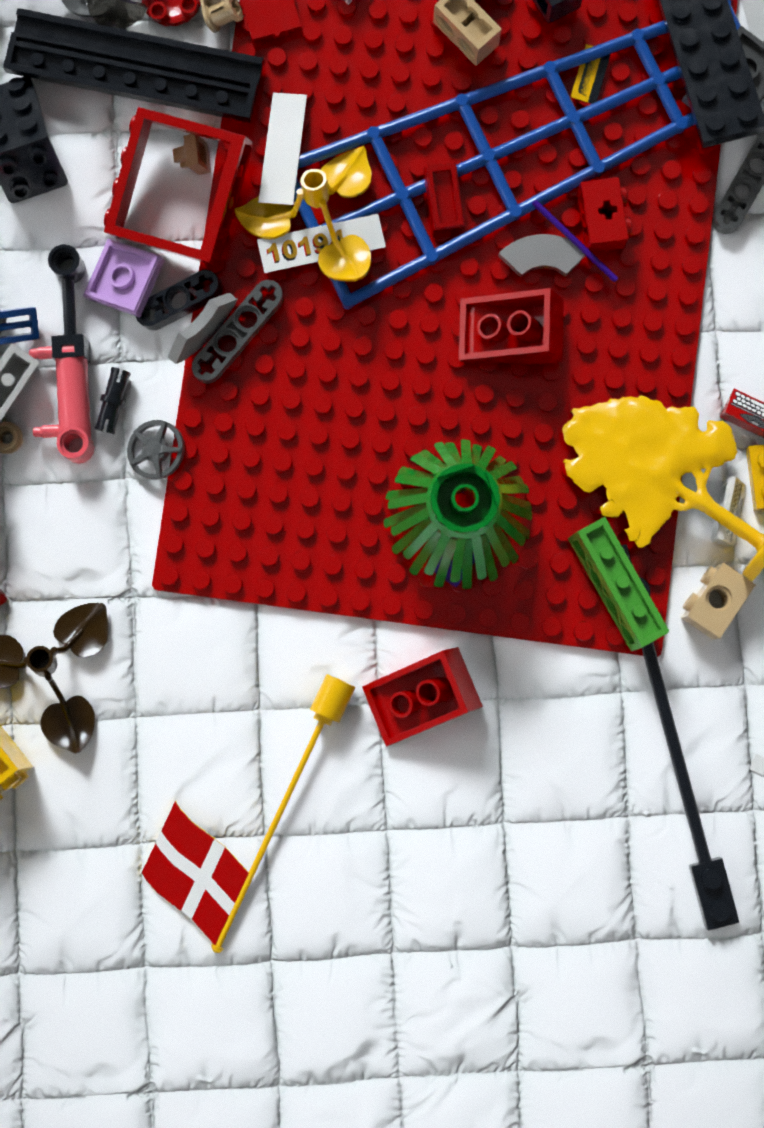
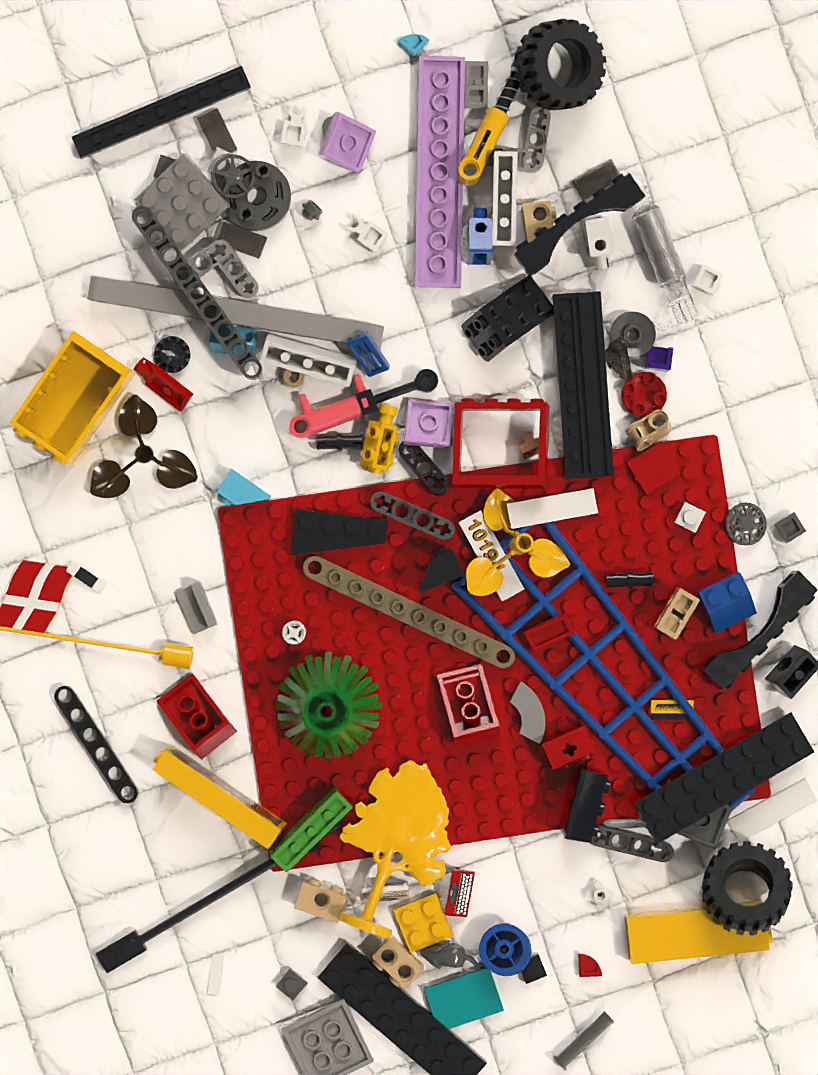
camera: 80 degrees right, 5 degrees up
(130, 351) = (380, 441): none -> yellow brick
(136, 548) = (240, 490): none -> medium azure slope
(155, 449) = (314, 482): dark grey wheel -> none
(190, 793) = (86, 577): none -> sticker
(202, 328) = (406, 491): light grey tile -> none
(226, 445) = (329, 531): none -> black wing
(276, 654) = (196, 608): none -> light grey panel
(317, 308) = (440, 569): none -> black slope
(344, 525) = (296, 633): none -> white wheel
(363, 373) = (409, 612): none -> dark tan plate
(405, 76) = (629, 579): none -> black pin
(422, 849) = (93, 746): none -> black beam
(540, 694) = (219, 796): none -> yellow brick
(574, 240) = (546, 728): dark purple axle -> none
(686, 213) = (586, 805): none -> black slope
(724, 170) = (624, 823): none -> light grey piece

